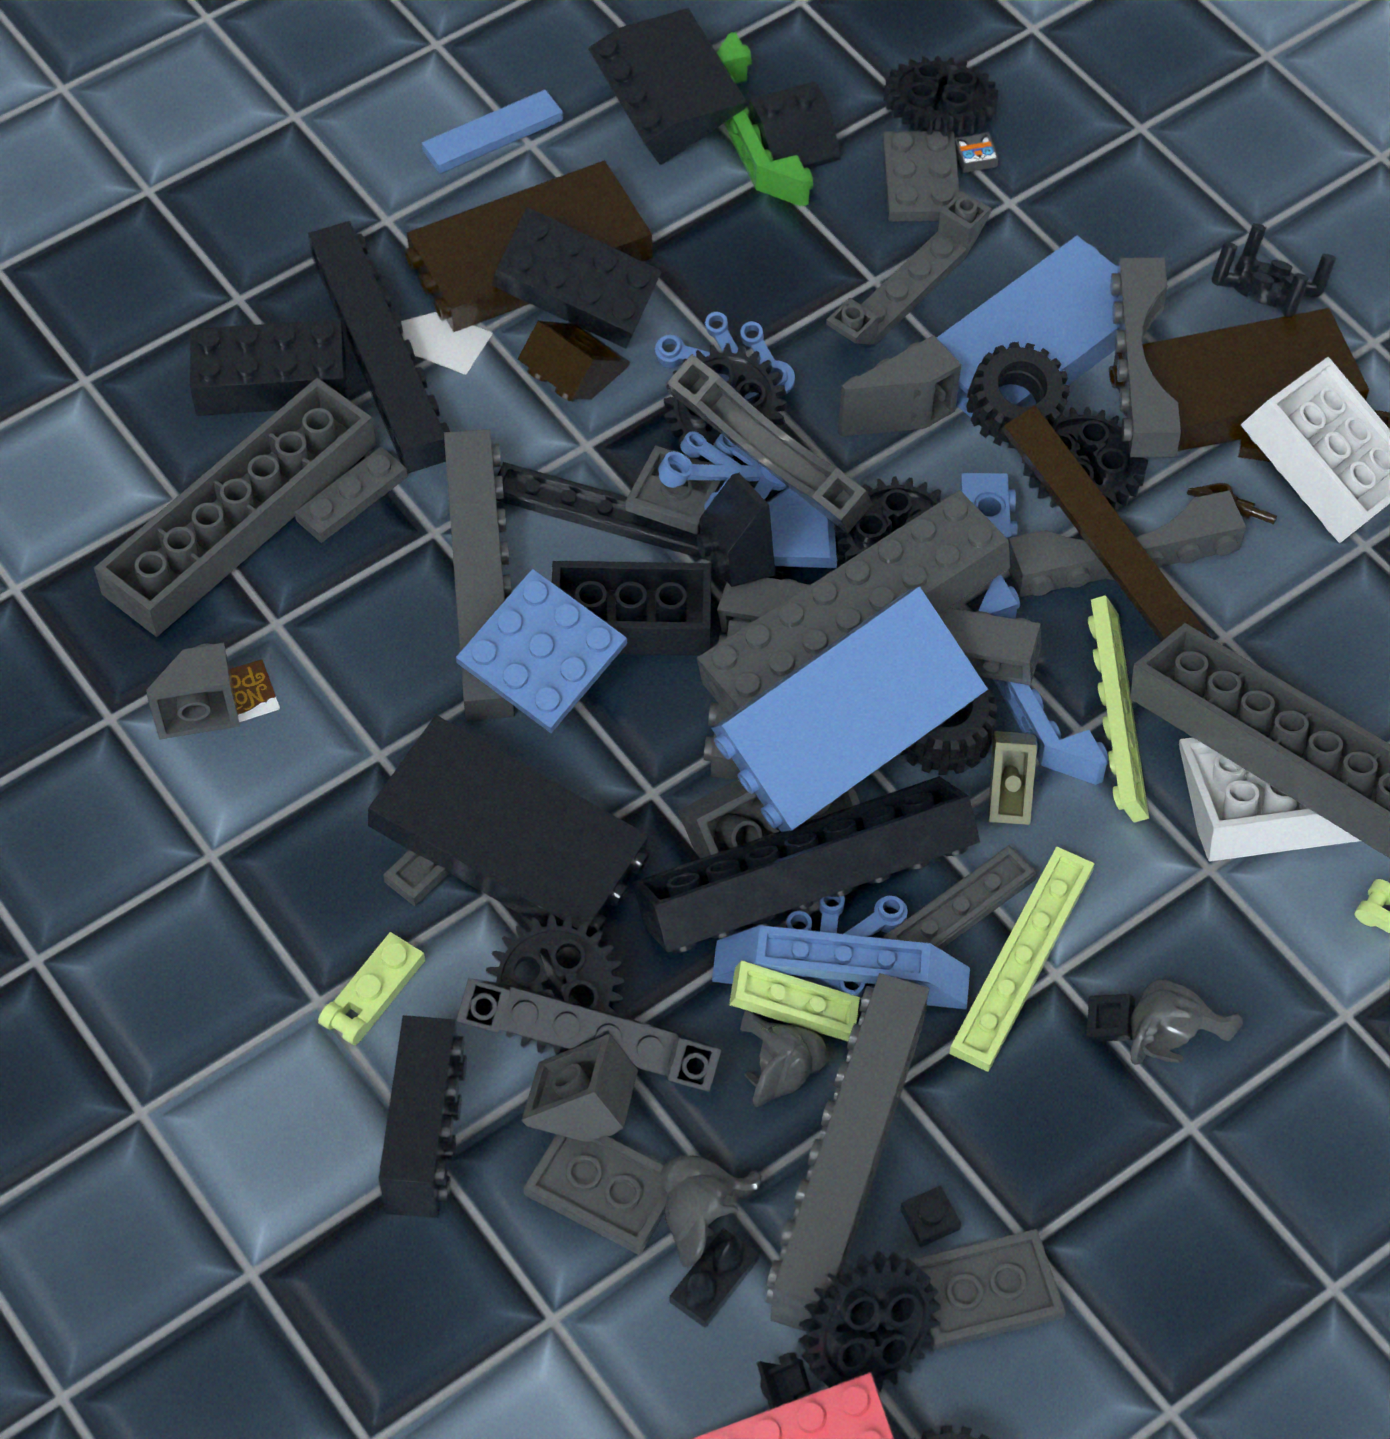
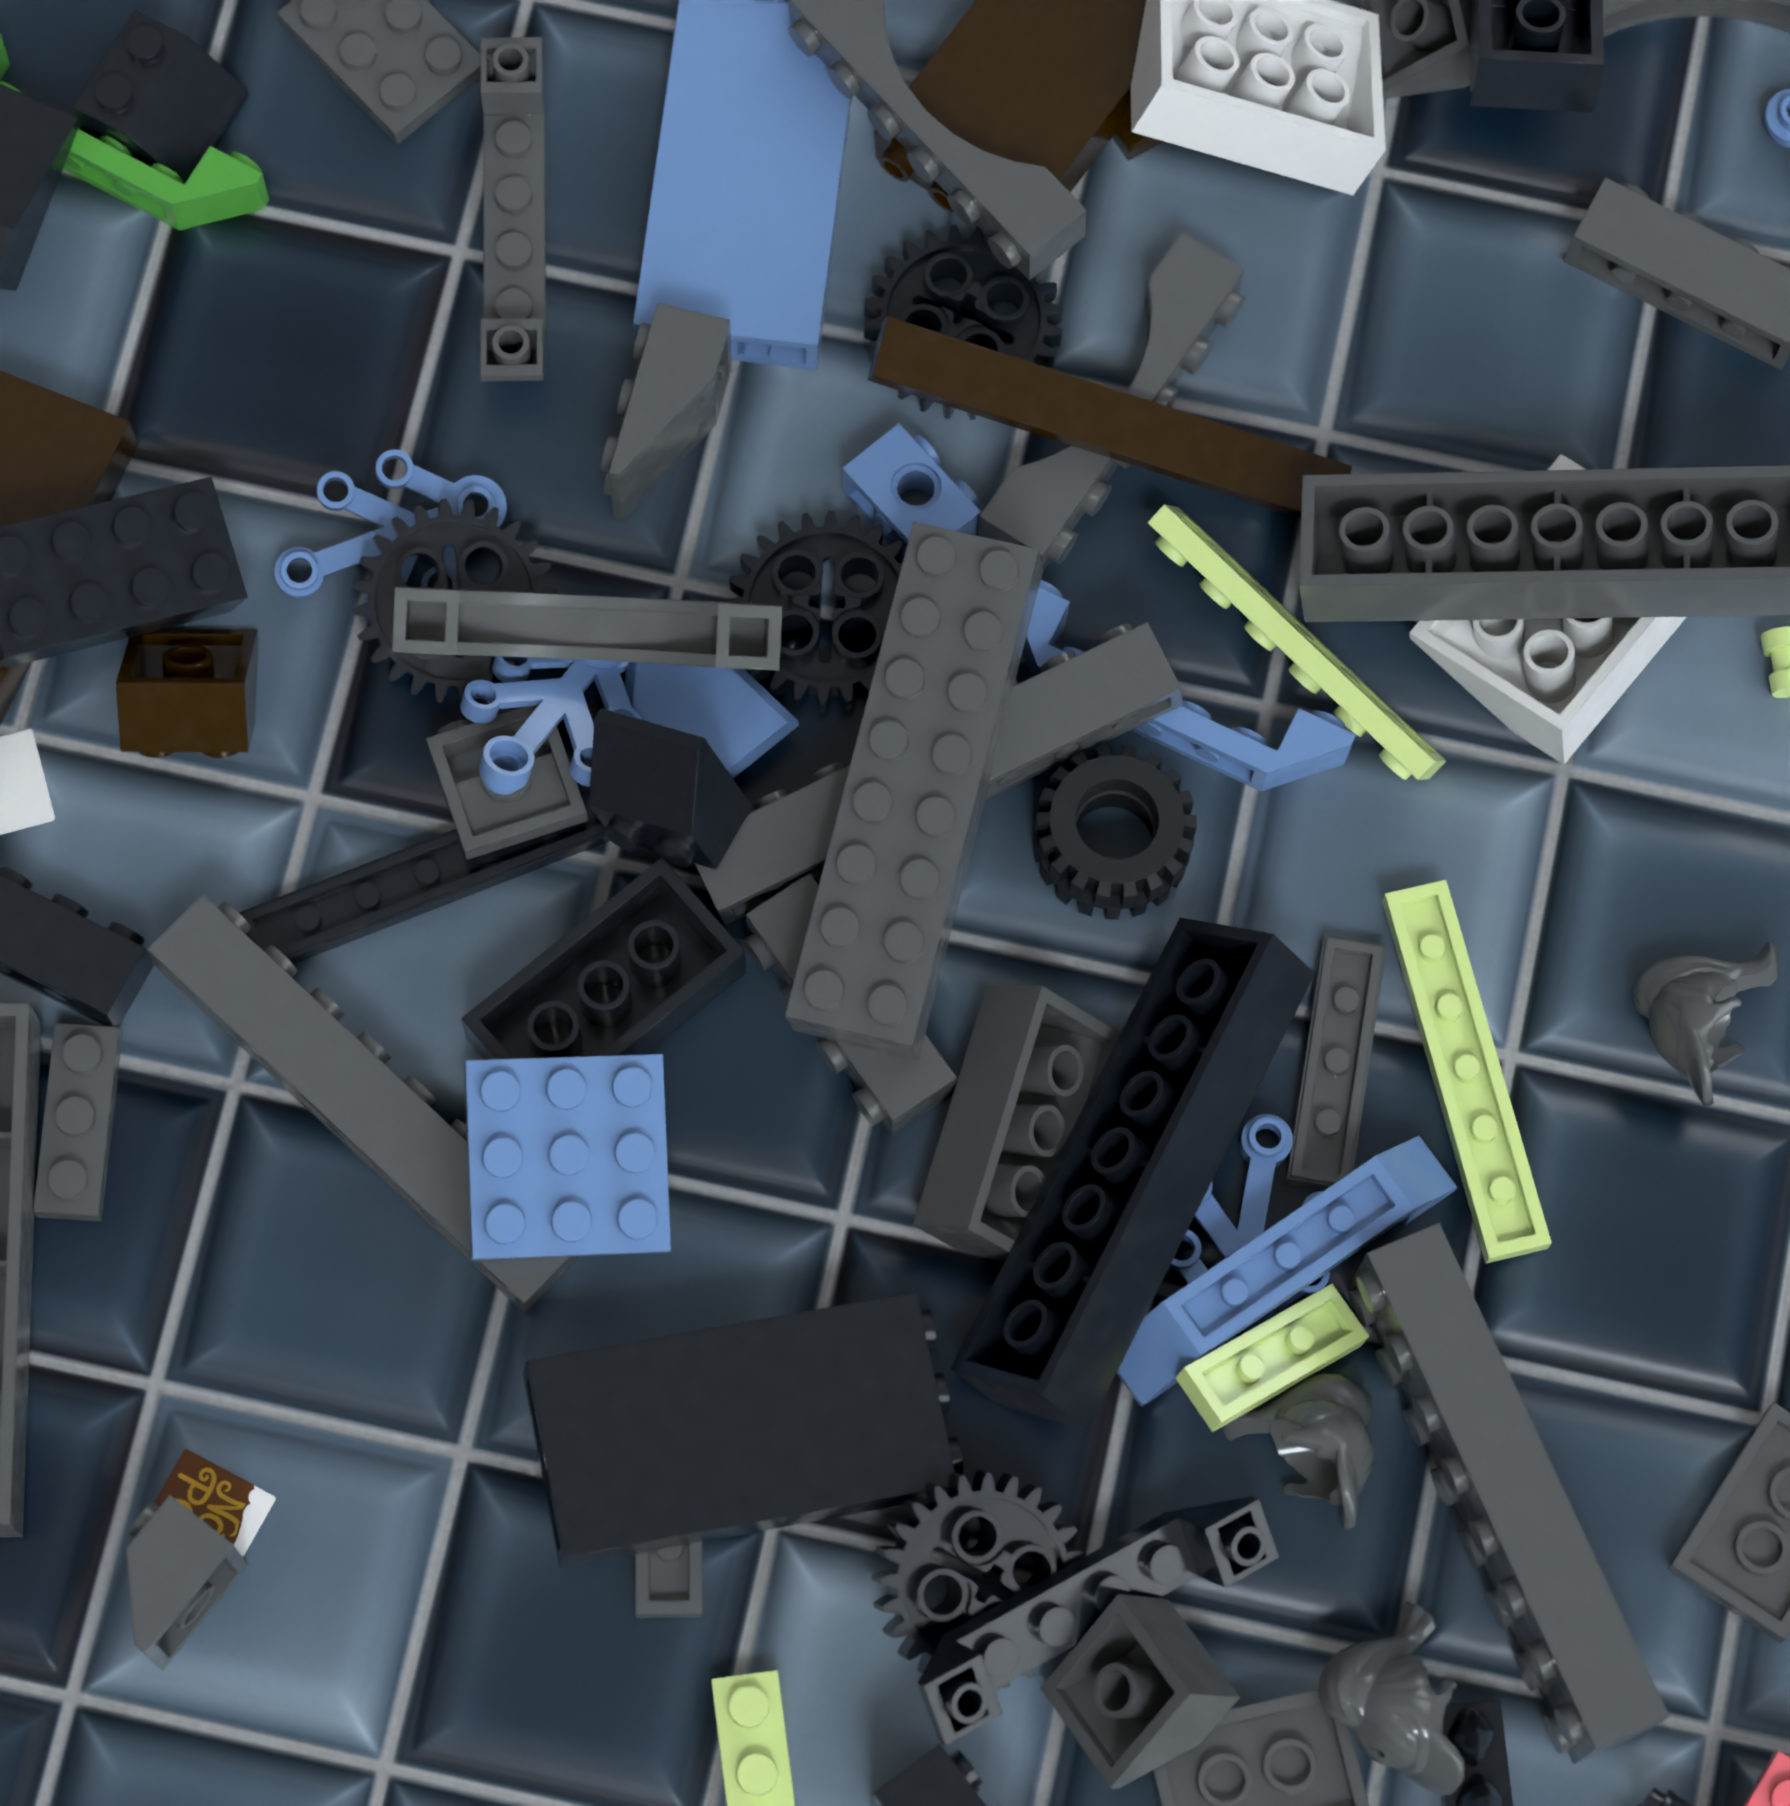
camera: 45 degrees left, 15 degrees up
(848, 710) = (1037, 938): medium blue brick -> none
(870, 1321) = (1719, 1689): black gear -> none
(930, 1216) = (1638, 1484): black plate -> none
(1012, 777) = (1253, 840): olive slope -> none
(1018, 367) = (843, 259): black tyre -> none
(1110, 1017) = (1628, 1065): black plate -> none
(1245, 507) = (1203, 231): dark brown hand -> none

